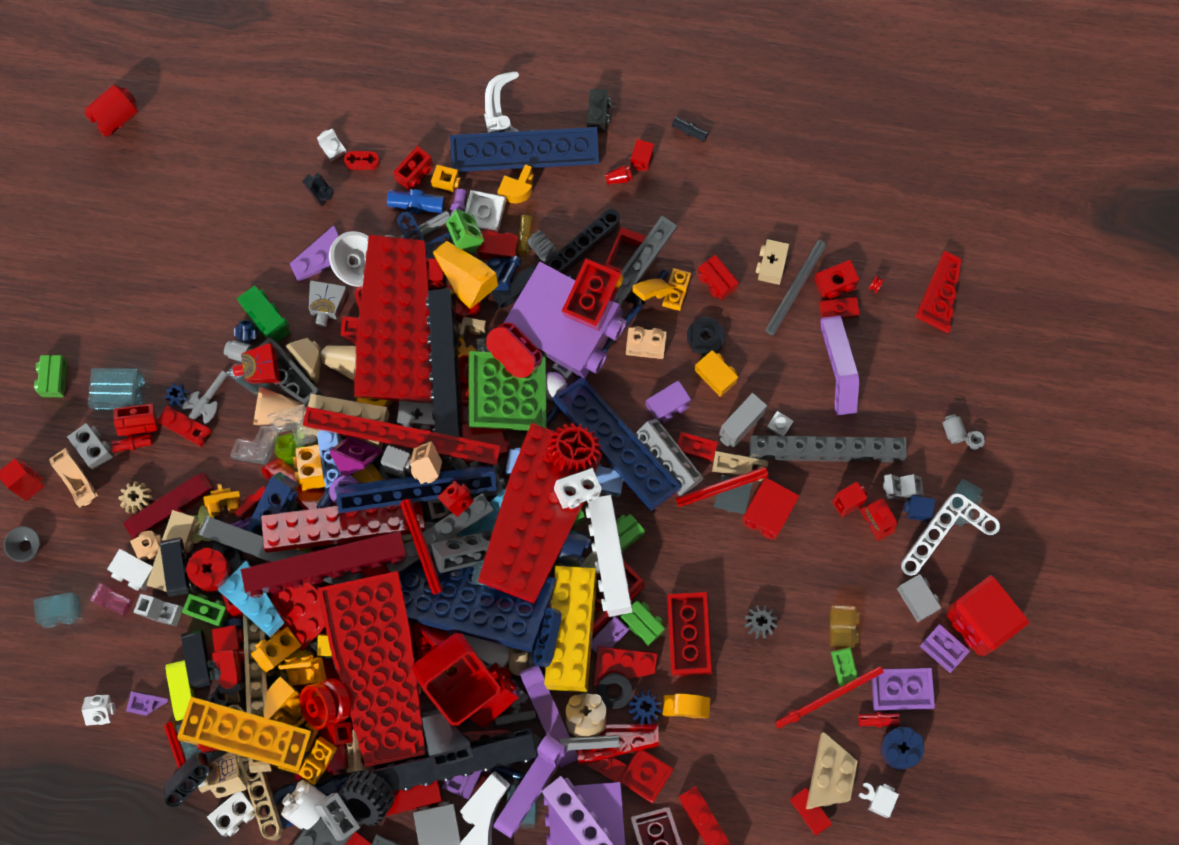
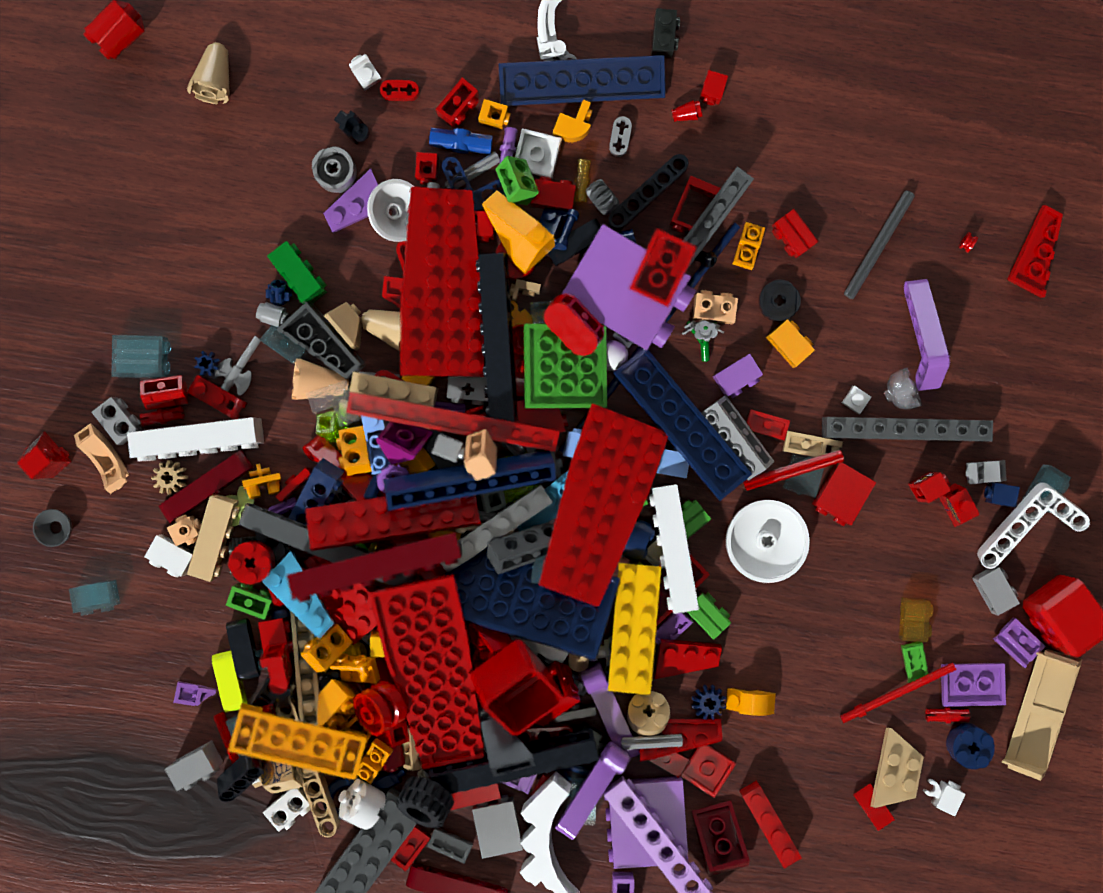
camera: 10 degrees left, 15 degrees up
(51, 376) = (69, 341): bright green brick -> none
(98, 710) = (144, 702): white brick -> none
(108, 598) = (144, 583): clear pink piece -> none
(142, 770) = (193, 766): none -> light grey brick
(158, 610) = (201, 599): light grey brick -> none
(162, 459) = (193, 438): none -> white brick
(174, 567) = (215, 558): black beam -> none
(194, 149) = (211, 76): none -> tan cone
(257, 450) = (296, 427): clear plate -> none
(259, 365) = (295, 337): red torso -> none
(301, 225) = (334, 158): none -> light grey brick
(326, 301) = (365, 258): light grey torso -> none
(337, 816) = (396, 822): light grey brick -> none
(383, 218) = (423, 161): none -> red brick
(421, 546) = (477, 544): red axle -> none
(456, 498) = (514, 494): red brick -> none
(545, 649) = (612, 658): dark blue beam -> none
(555, 196) = (615, 136): none -> light grey beam
(575, 485) = (641, 478): white brick -> none
(589, 449) = (641, 427): red gear -> none
(617, 678) = (677, 673): black tyre -> none
(637, 359) = (703, 333): none -> light grey plant
(652, 287) = (723, 248): light orange slope -> none
(689, 634) = (756, 628): red brick -> none
(690, 129) = (767, 56): black pin -> none
(698, 551) = (767, 541): none -> white dish
(742, 421) = (818, 399): light grey brick -> none
(755, 616) = (830, 622): dark grey gear -> none
(772, 251) = (862, 206): tan brick -> none
(821, 413) = (902, 390): none -> clear cylinder
(840, 307) = (925, 269): red plate -> none
(843, 272) = (934, 229): red brick -> none
(954, 429) = (1043, 407): light grey brick -> none
(972, 715) = (1042, 713): none -> tan piece
(975, 435) = (1069, 418): light grey plate -> none

